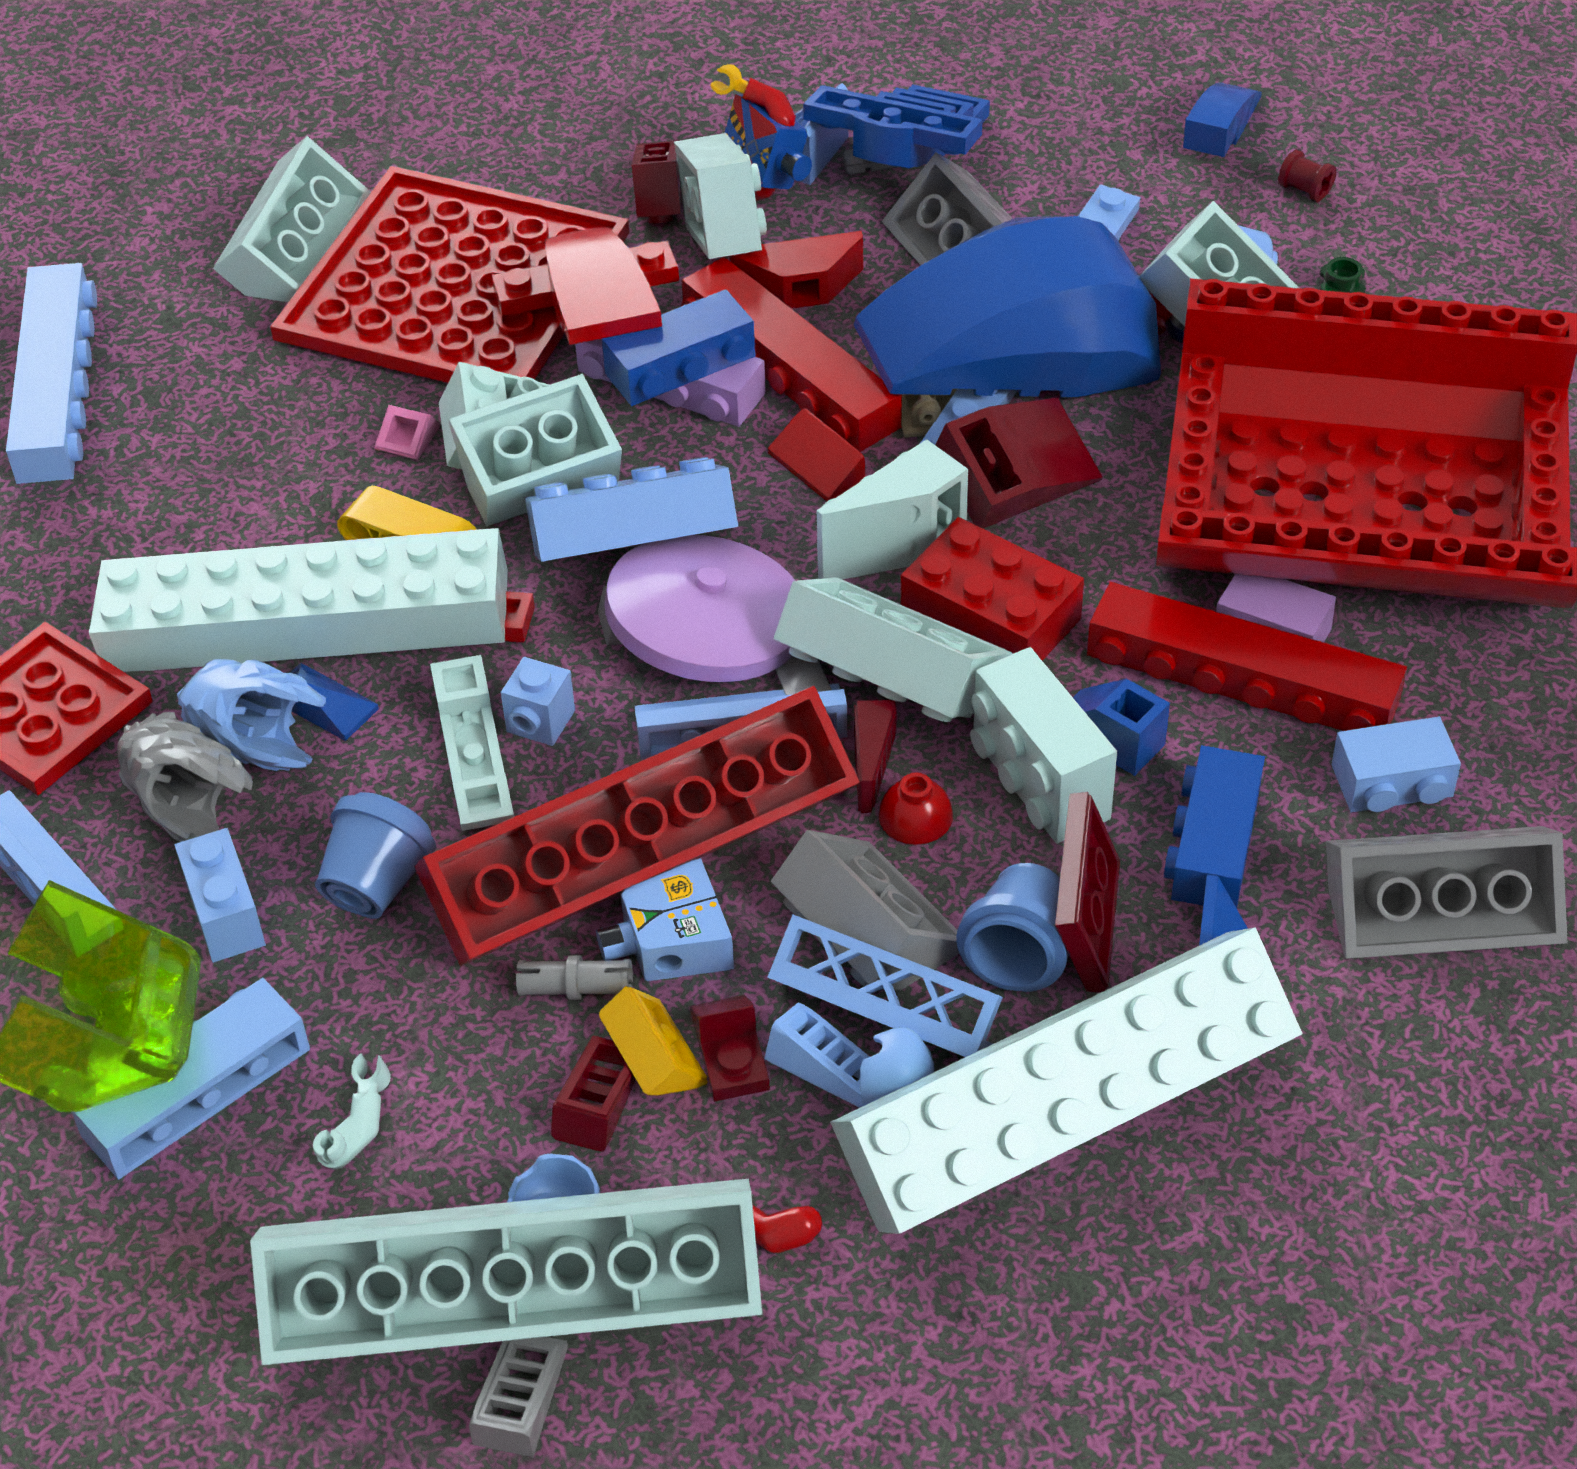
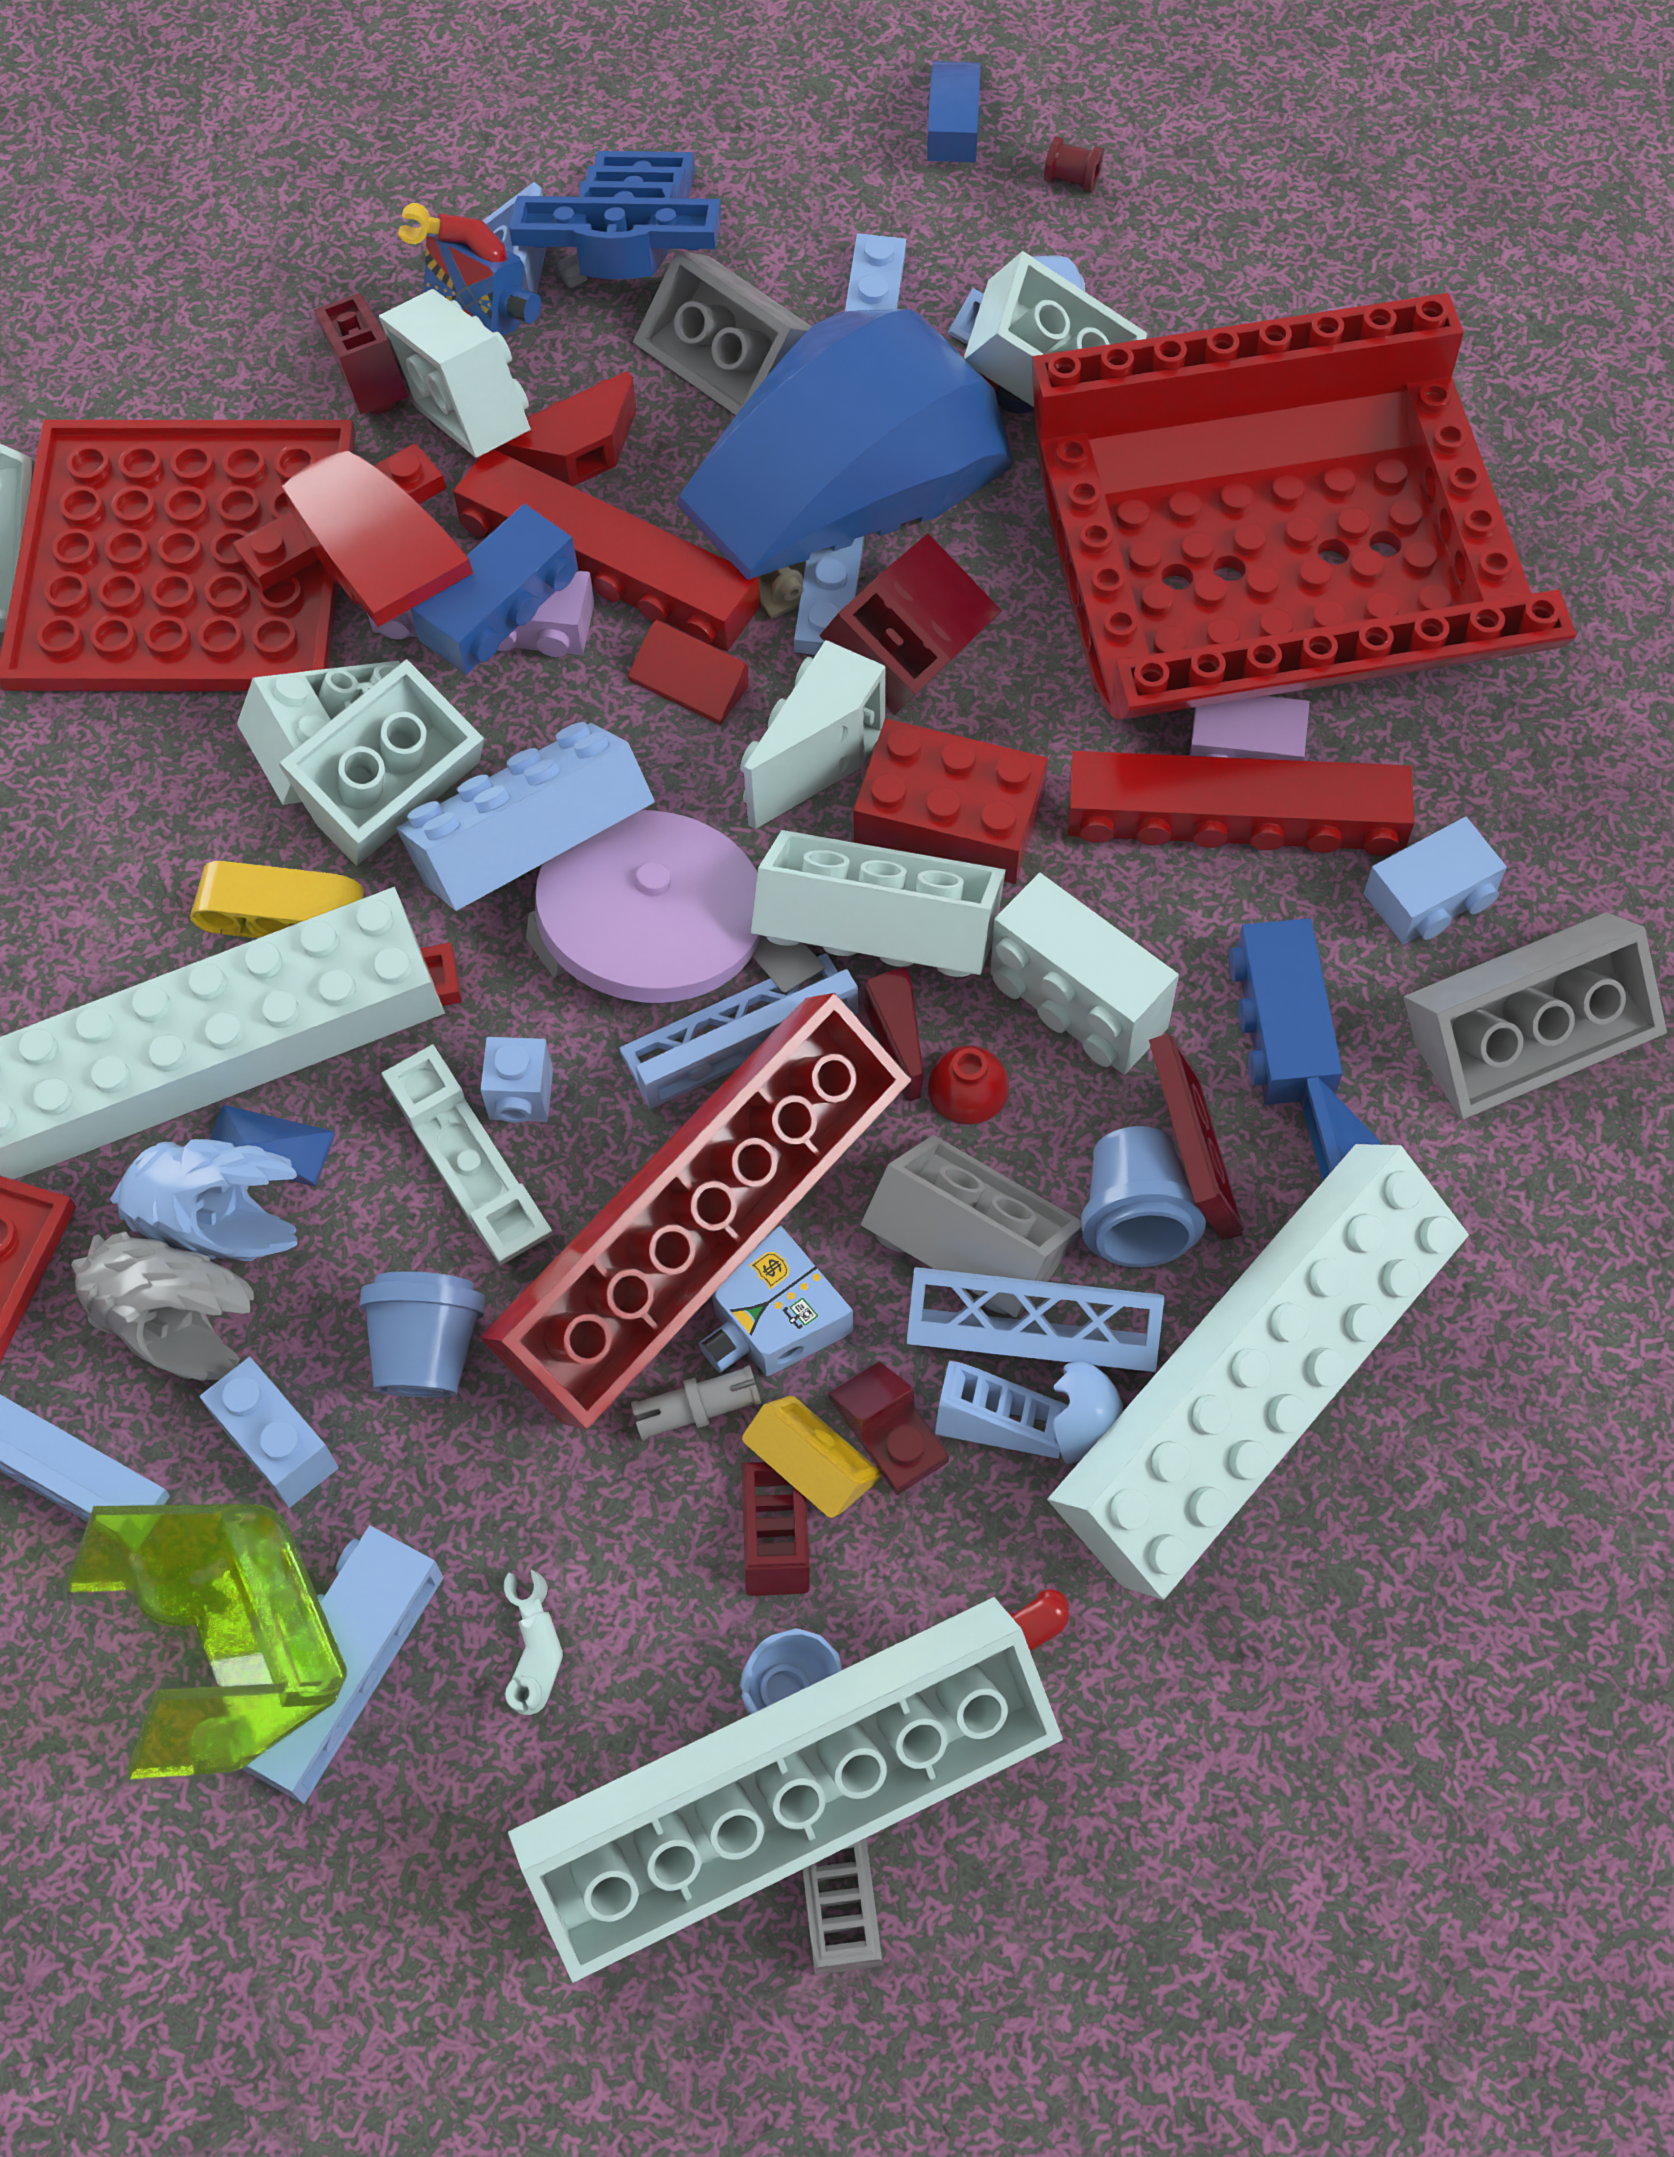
camera: 20 degrees left, 15 degrees up
(406, 432) = (213, 772): bright pink slope -> none
(1129, 718) = (1147, 910): blue slope -> none
(1343, 275) = (1158, 287): dark green plate -> none

